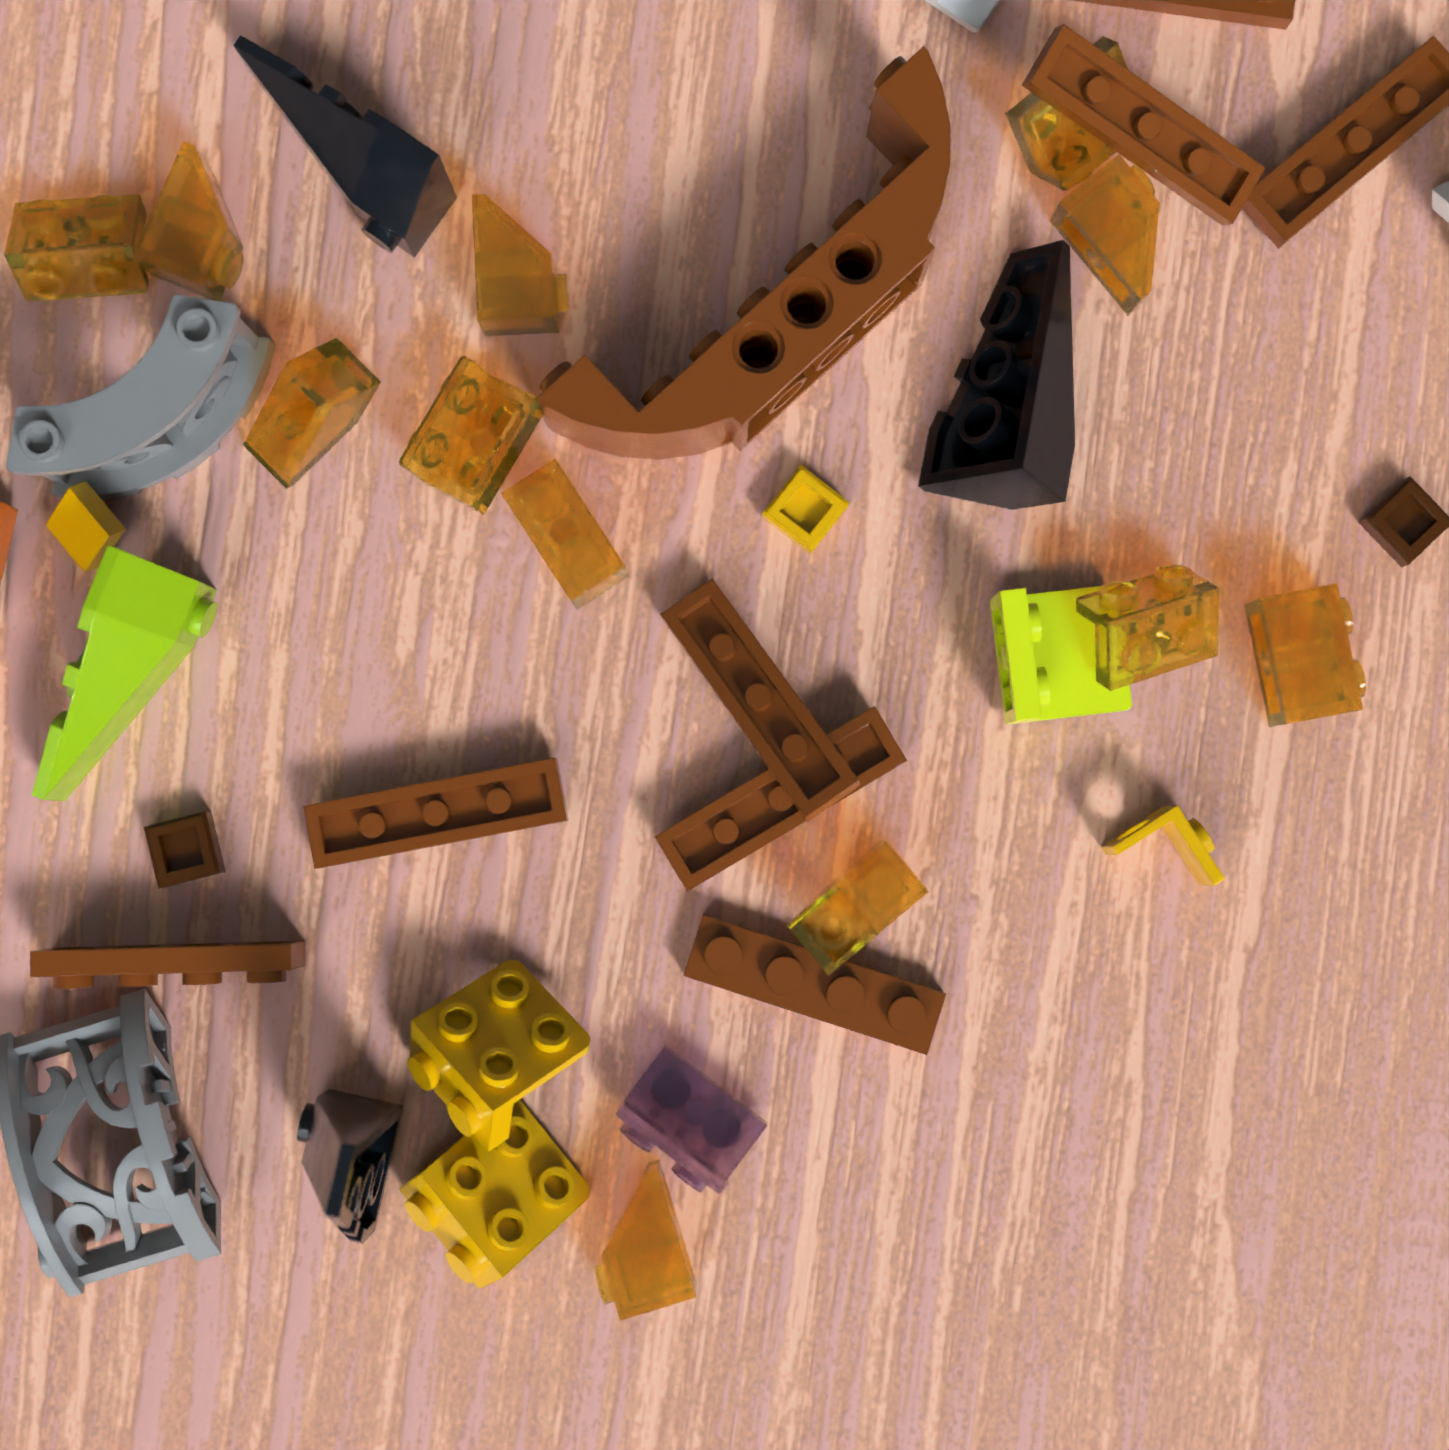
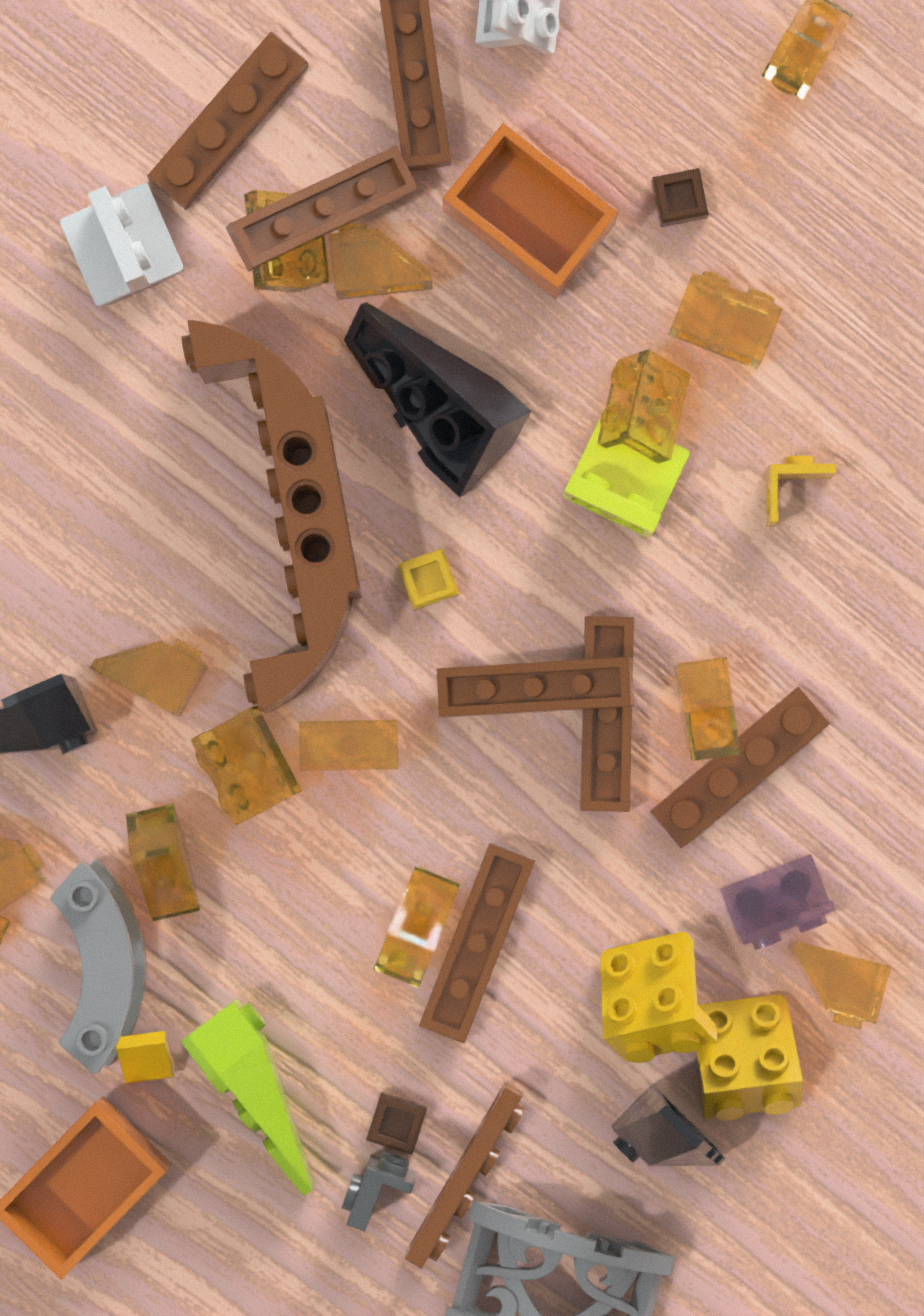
camera: 55 degrees left, 0 degrees up
(113, 870) = (364, 1189): none -> dark grey bracket
(412, 734) = (416, 926): none -> clear yellow slope
(1288, 359) = (529, 210): none -> orange piece

